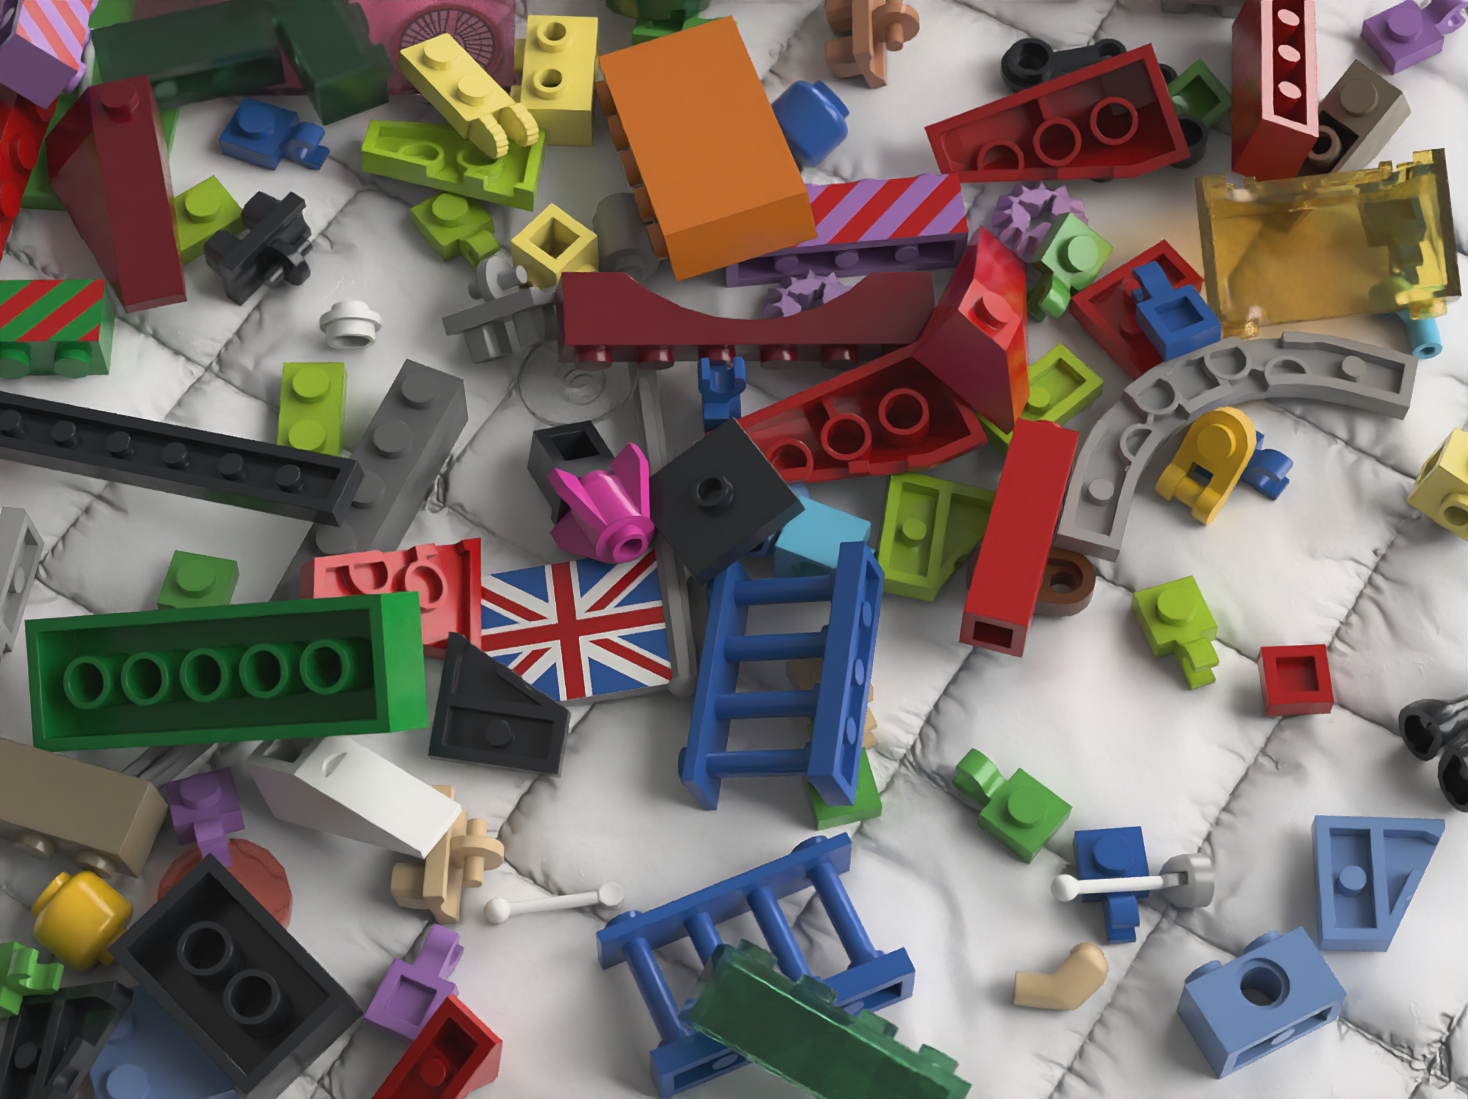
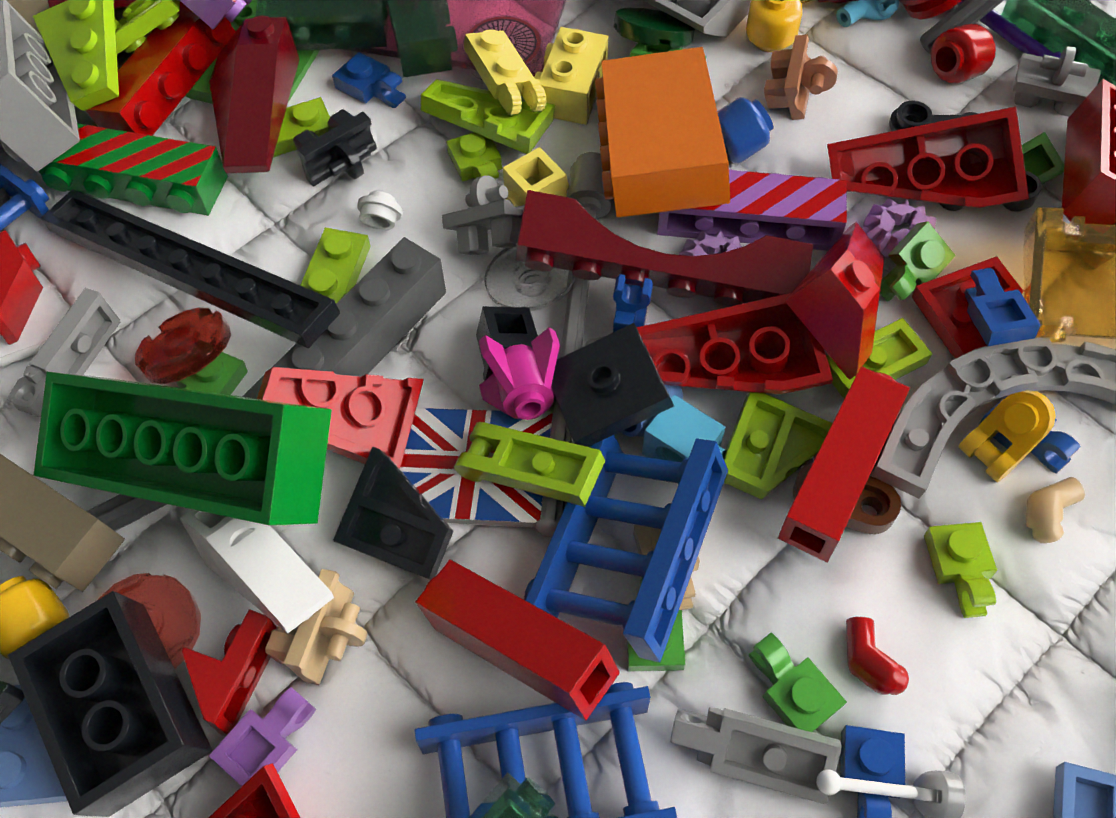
camera: 15 degrees right, 0 degrees up
(153, 556) = (184, 345): none -> clear red tile
(205, 811) = (147, 550): medium lavender plate -> none
(354, 935) = (227, 685): none -> red slope
(609, 897) = (444, 689): white hinge -> none
(646, 612) = (531, 463): none -> lime plate
(684, 810) = (519, 638): none -> red brick
(982, 877) = (758, 750): none -> light grey hinge
(1090, 760) = (869, 663): none -> red arm
(1266, 542) = (1046, 508): none -> tan arm
(1295, 680) = (1059, 631): red plate -> none

